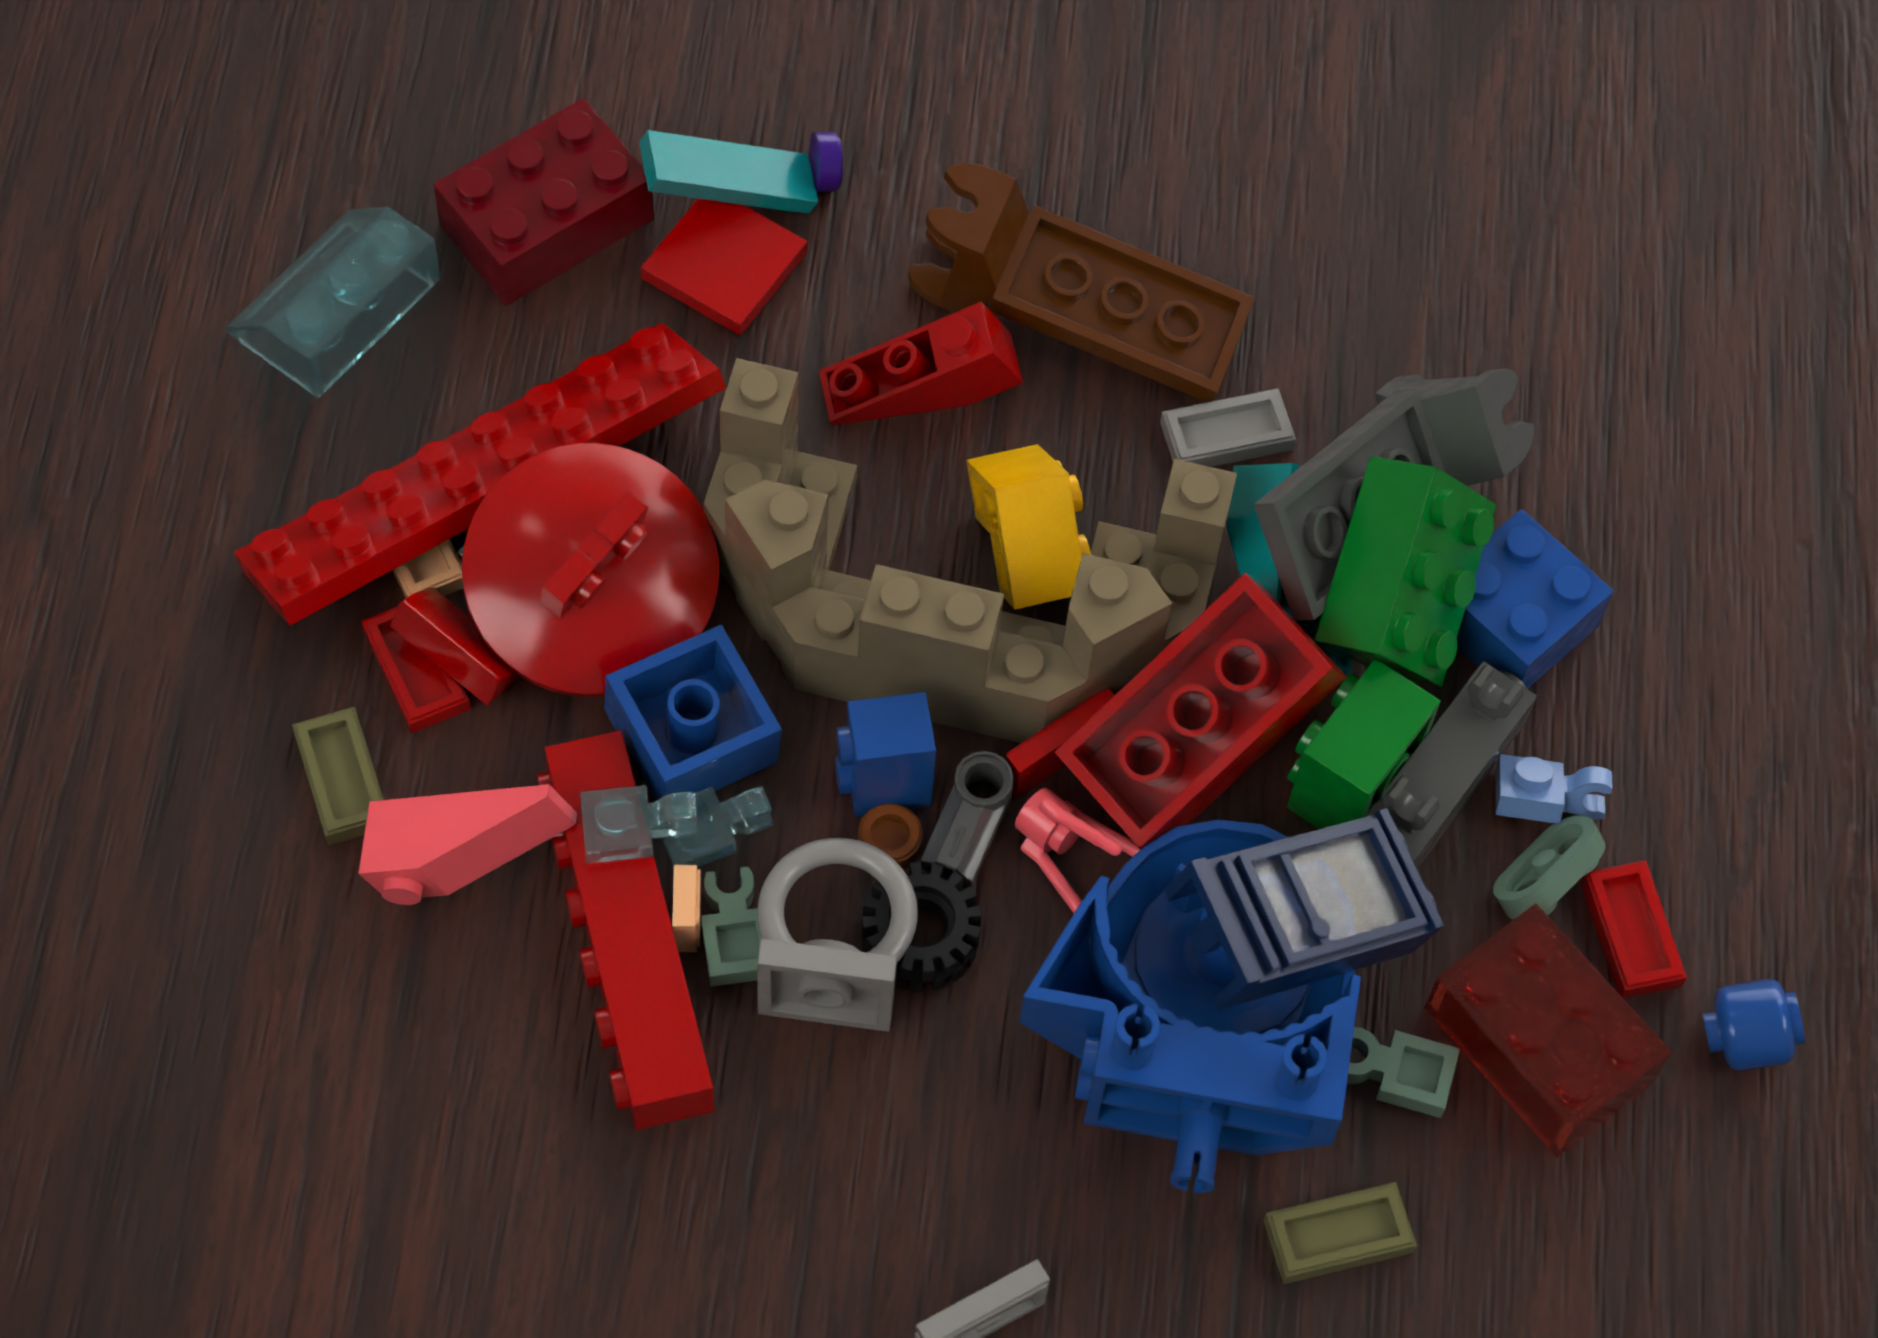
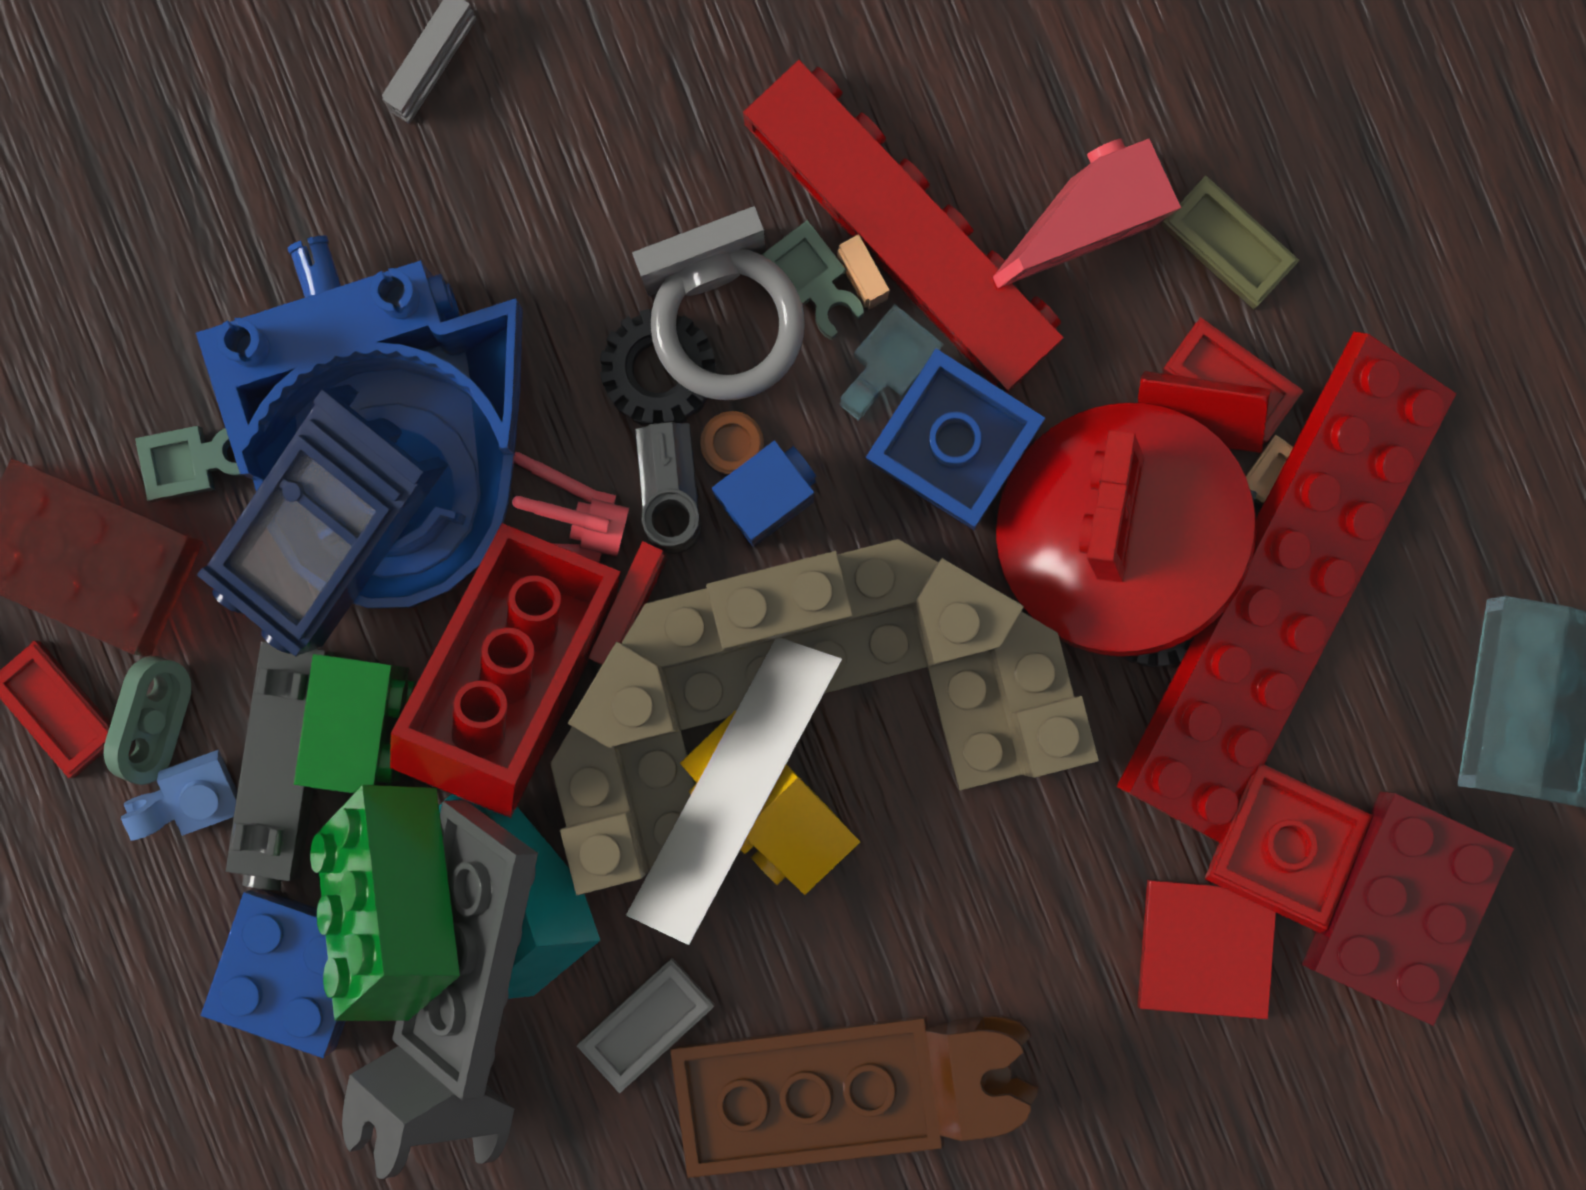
camera: 160 degrees right, 25 degrees up
(609, 289) = (1289, 848): none -> red tile
(622, 822) = (950, 296): clear light blue plate -> none
(728, 172) = (1252, 1030): teal tile -> none
(826, 161) = (1172, 1107): dark purple tile -> none
(925, 370) = (954, 923): red slope -> none
(1062, 511) = (733, 789): none -> white sticker
(1339, 1233) = (178, 294): olive tile -> none

